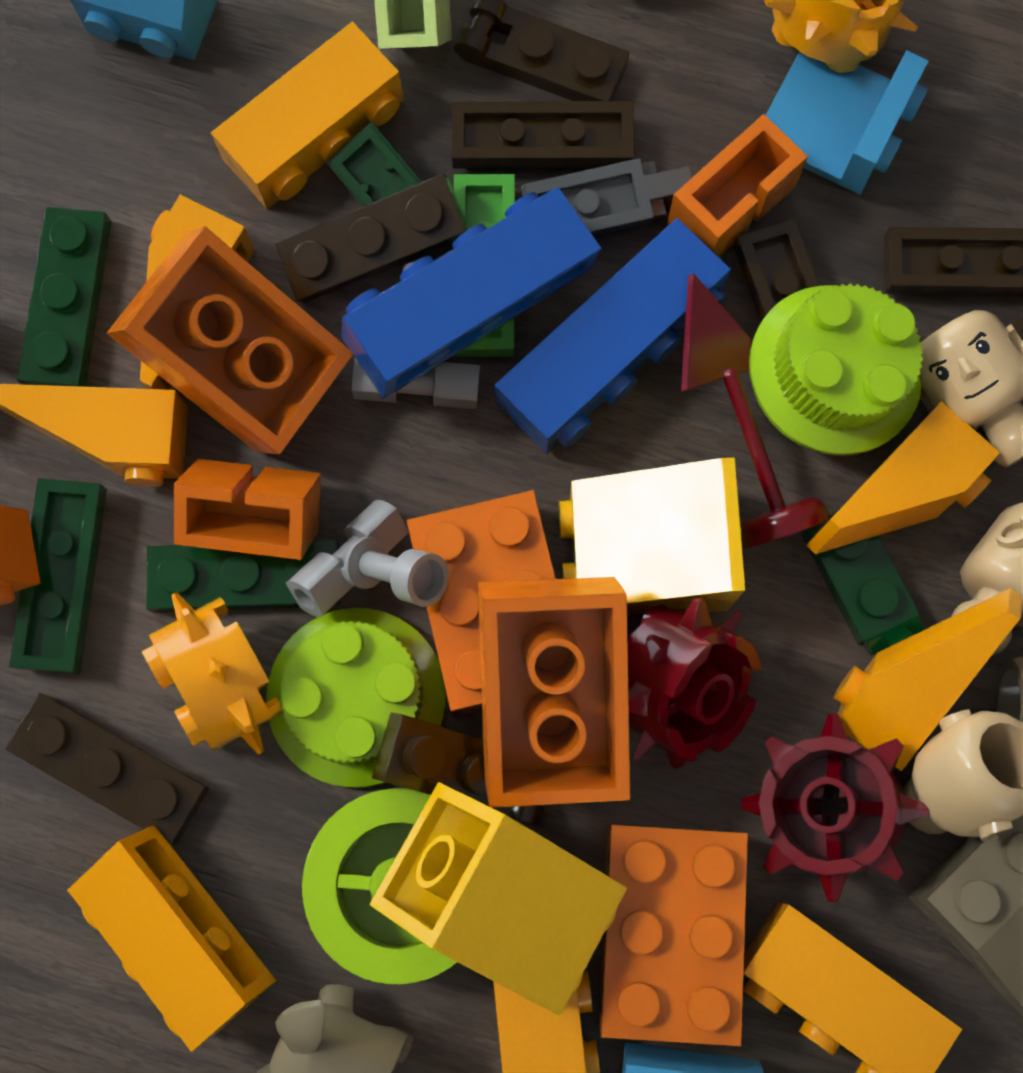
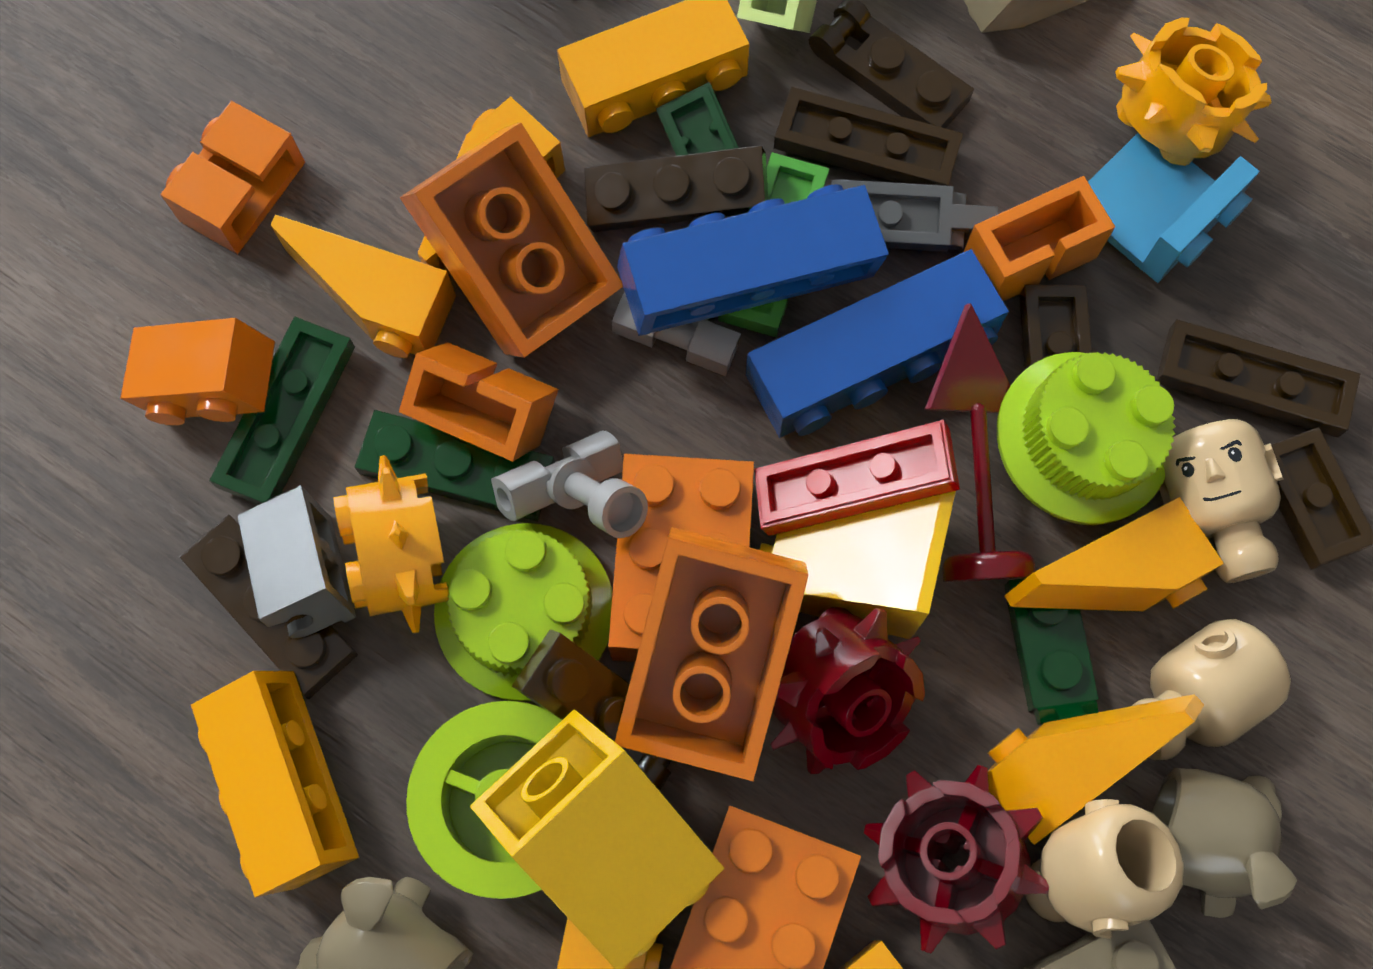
camera: 15 degrees right, 5 degrees down
(64, 297) = (376, 161): dark green plate -> none
(122, 722) = (295, 564): none -> hinge
(637, 478) = (856, 478): none -> tile

